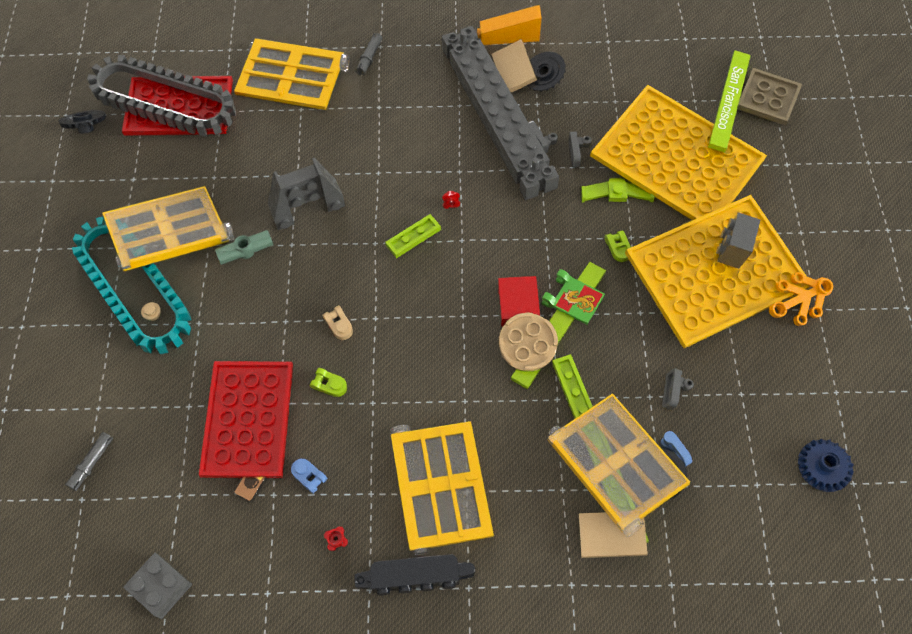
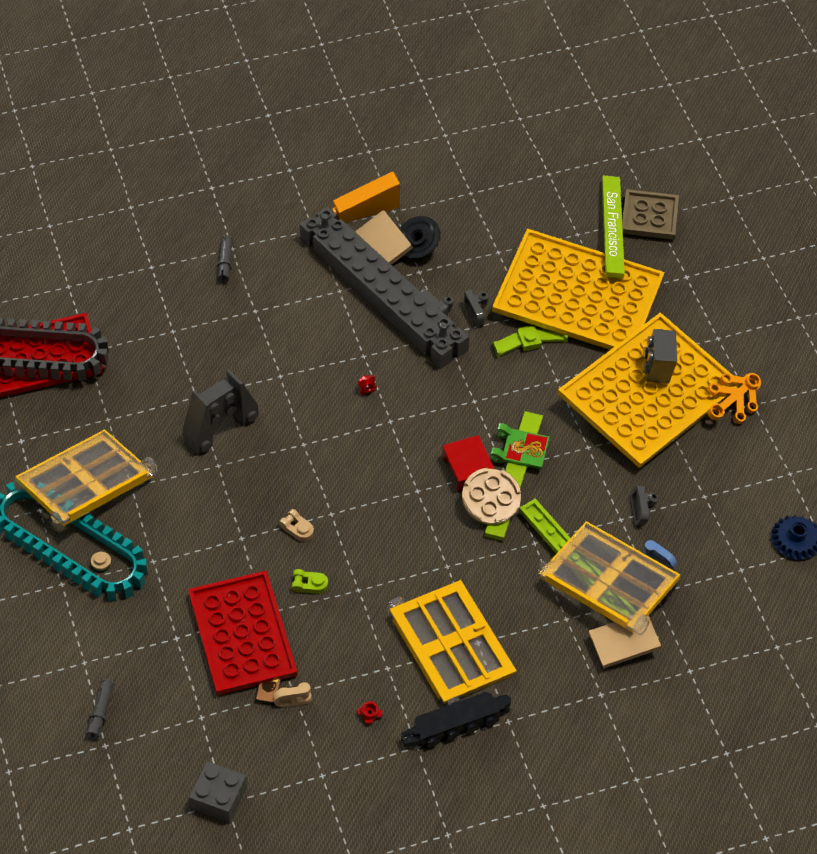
camera: 20 degrees left, 10 degrees down
(235, 250) = (172, 477): sand green piece -> none
(264, 500) = (293, 696): none -> tan plate
(290, 73) = (148, 296): yellow door -> none
(303, 470) = (314, 664): medium blue plate -> none
(413, 236) = (341, 427): lime plate -> none
(618, 249) = (549, 393): lime plate -> none

